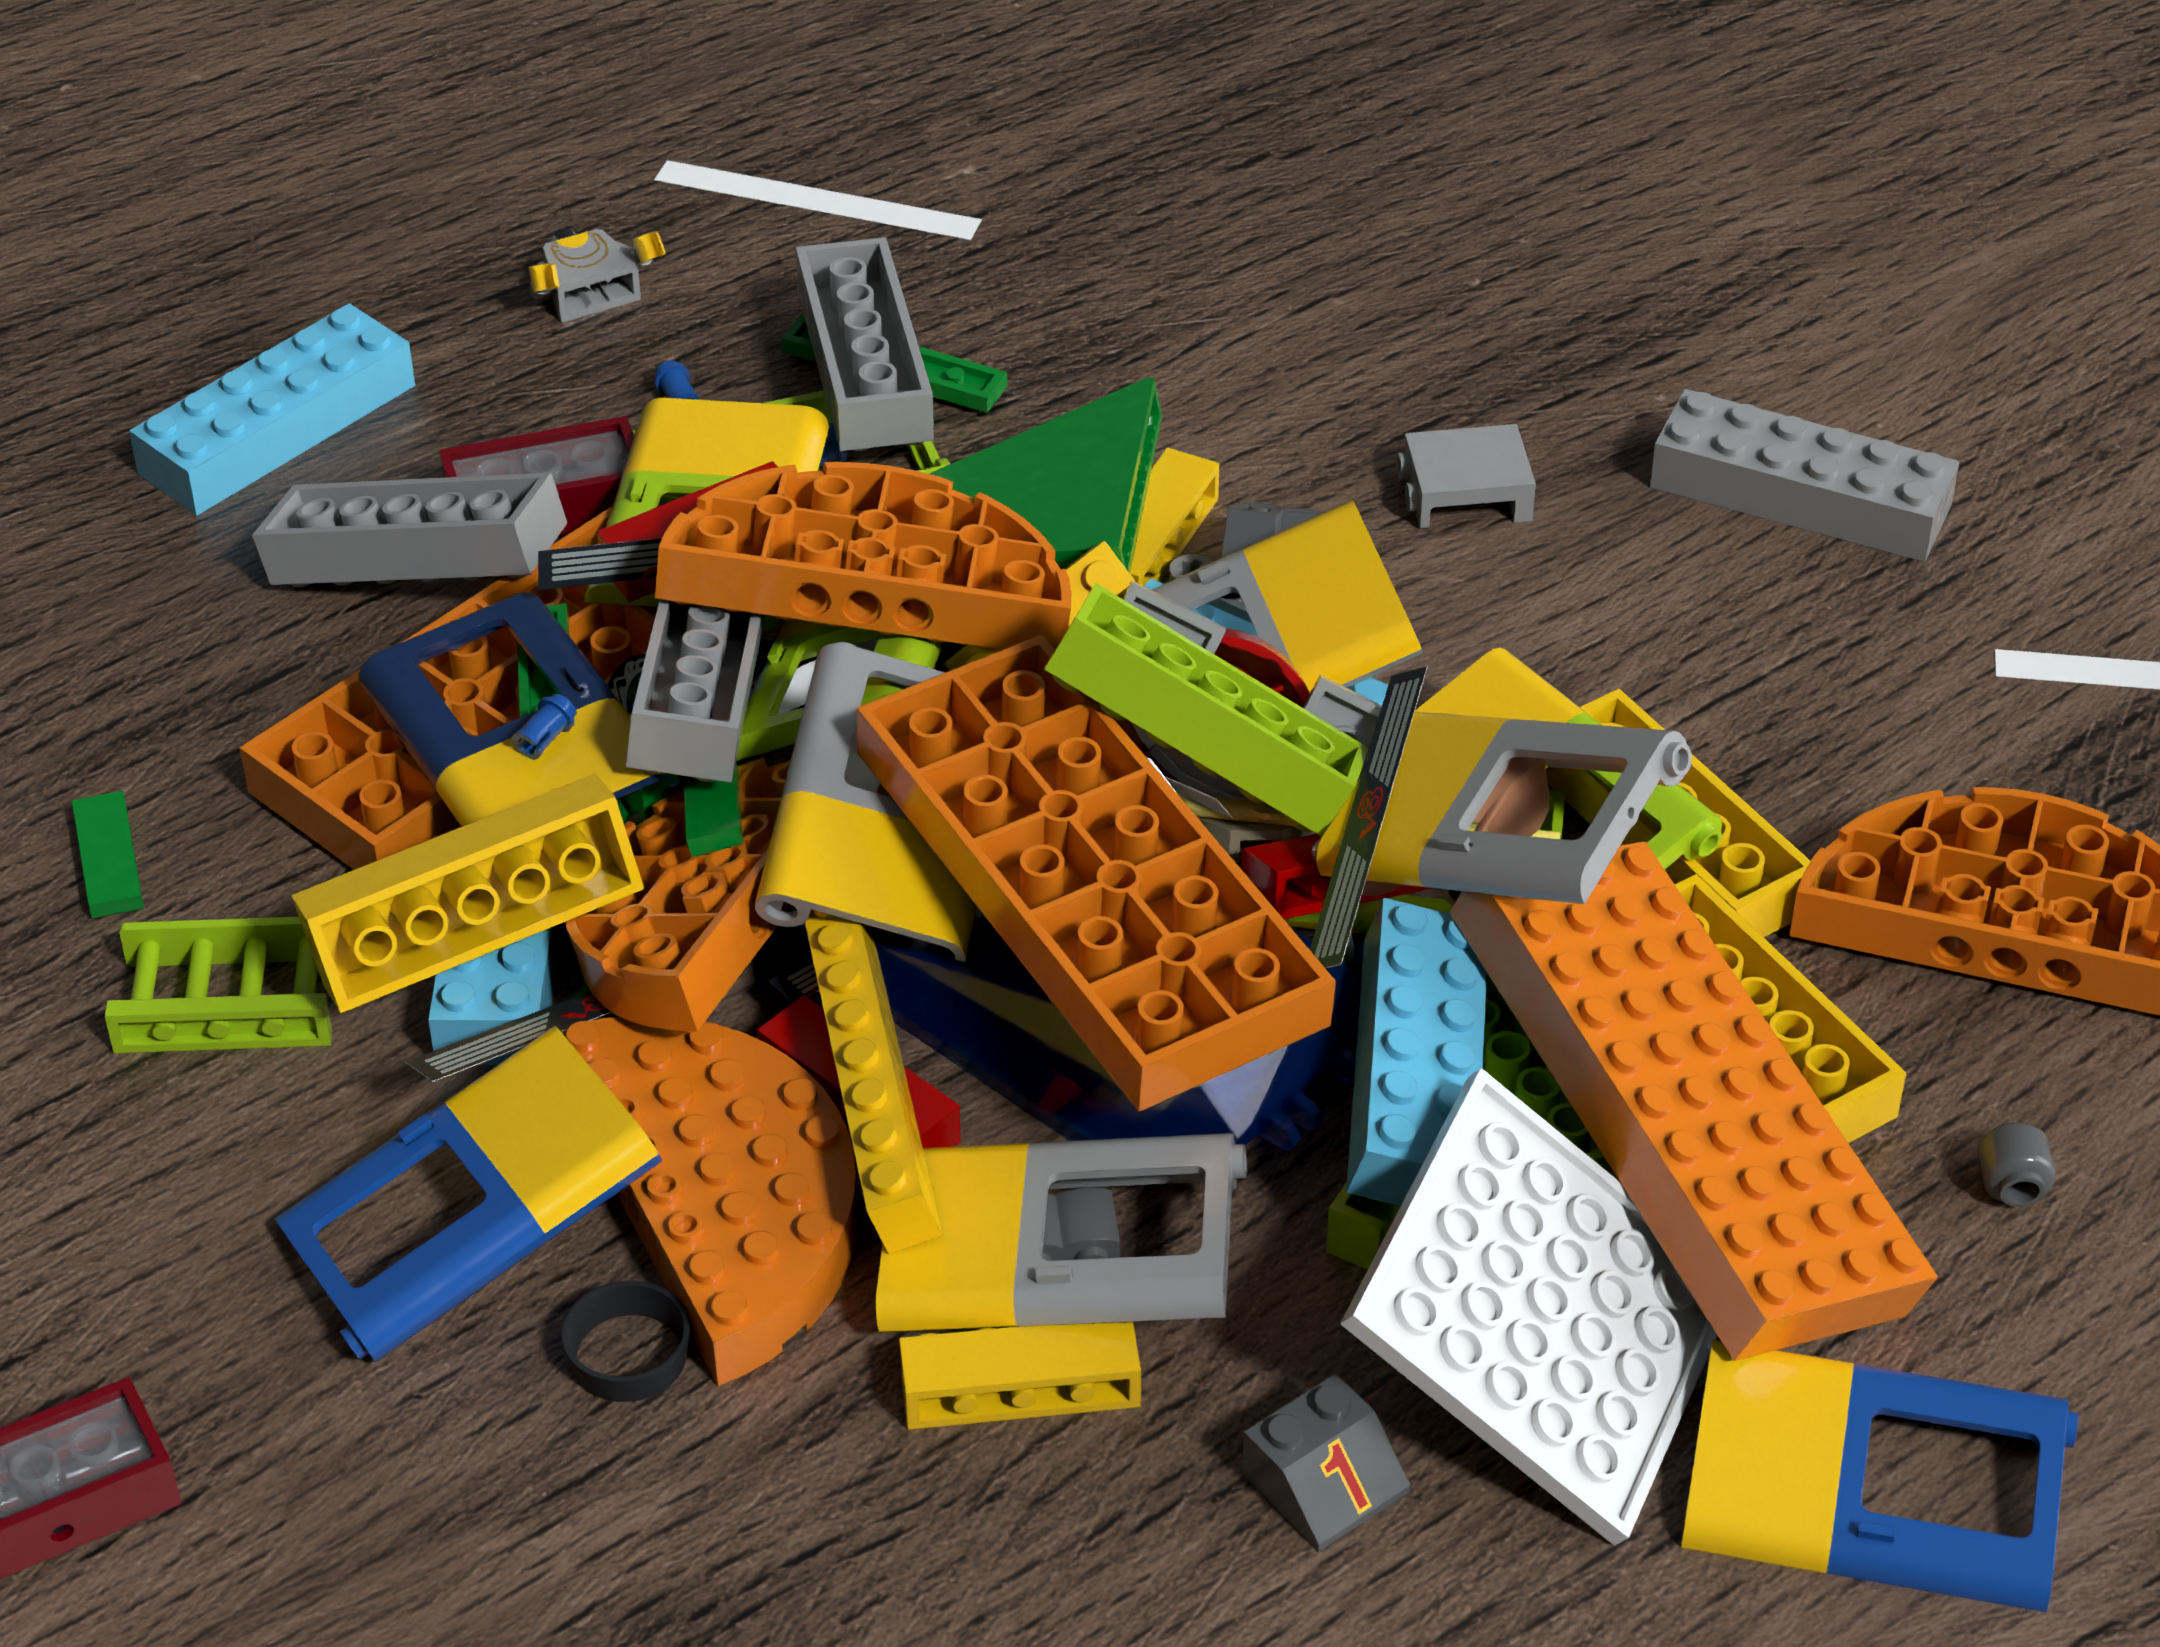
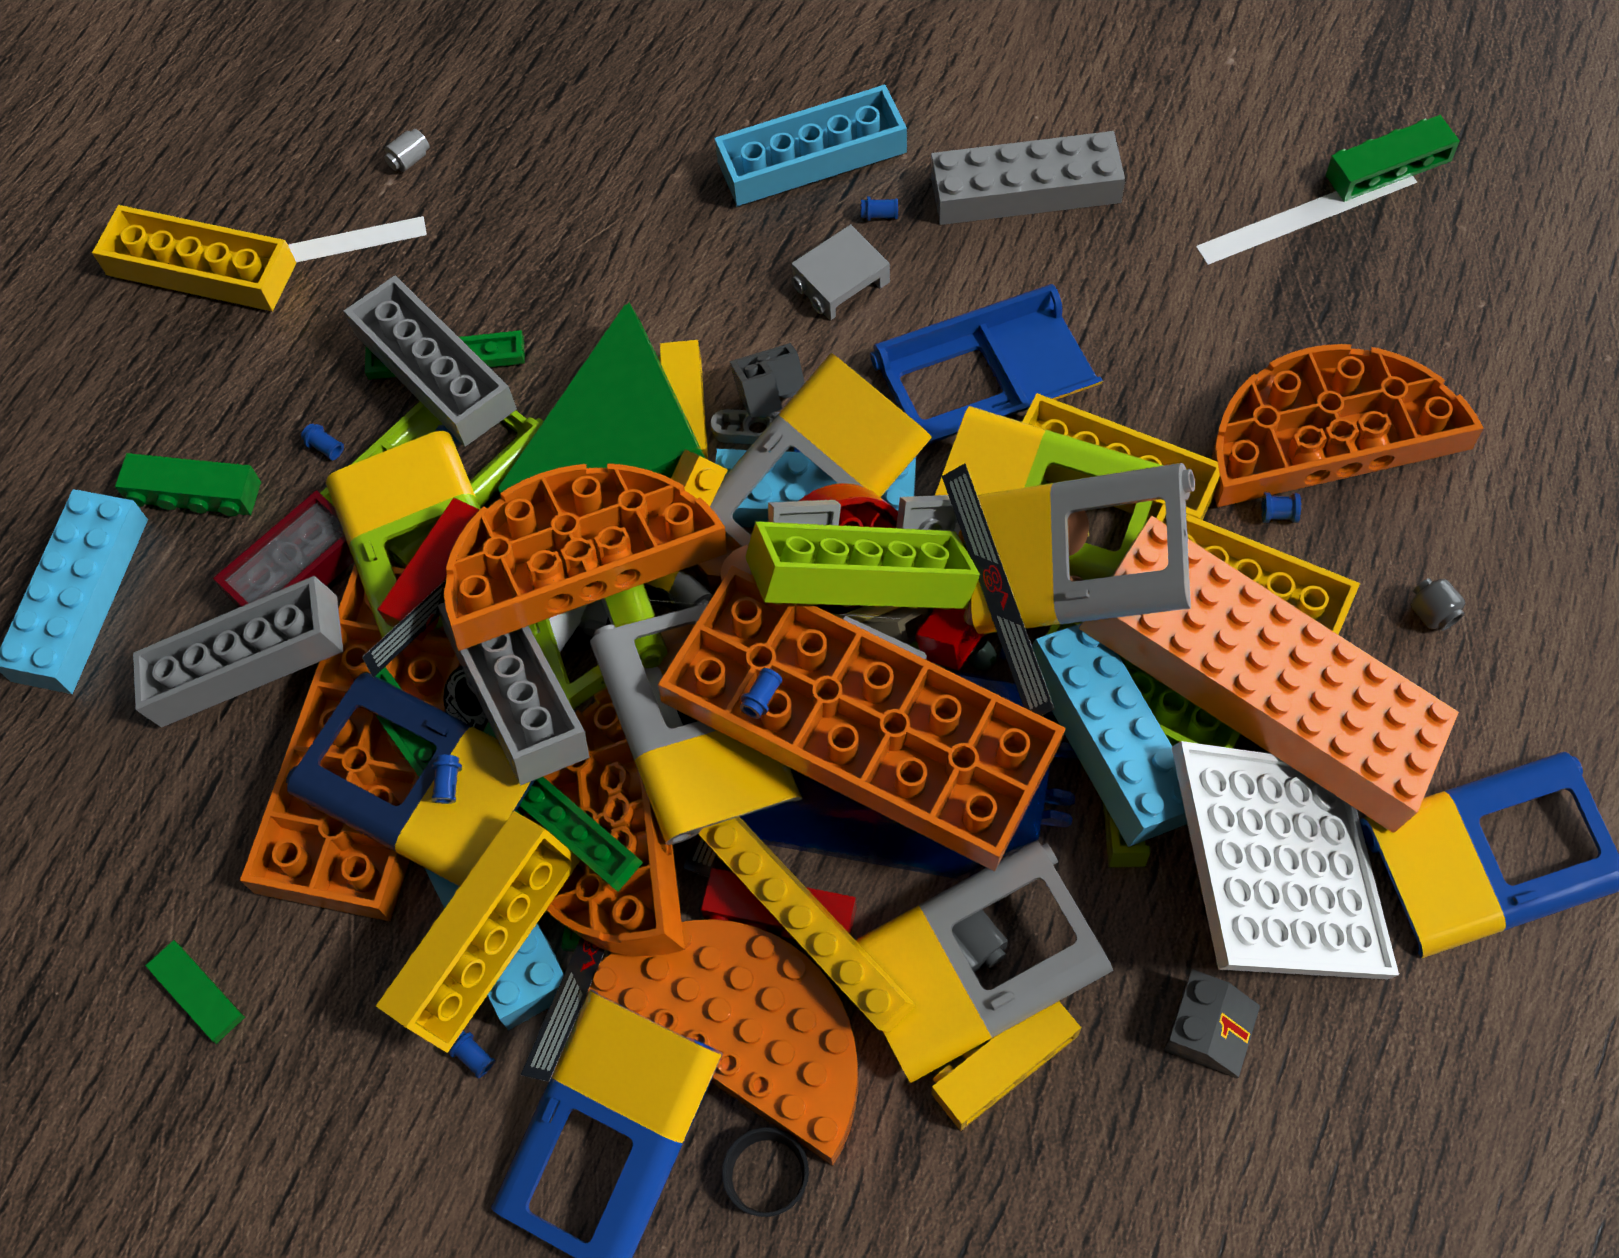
camera: 25 degrees left, 20 degrees up
(222, 1021) = (340, 1090): lime fence -> none
(368, 1047) = (472, 1054): none -> blue pin
(488, 363) = (188, 484): none -> green brick
(591, 271) = (208, 379): light grey torso -> none
(662, 853) = (580, 833): none -> green plate
(669, 145) = (195, 257): none -> yellow brick
(712, 814) = (589, 786): green tile -> none
(961, 767) = (756, 700): none -> blue pin
(1009, 140) = (406, 150): none -> light grey brick
(1533, 326) = (811, 145): none -> medium azure brick
(1576, 433) = (879, 208): none -> blue pin
(1654, 642) = (1021, 342): none -> blue piece
(1876, 968) = (1281, 507): none -> blue bush

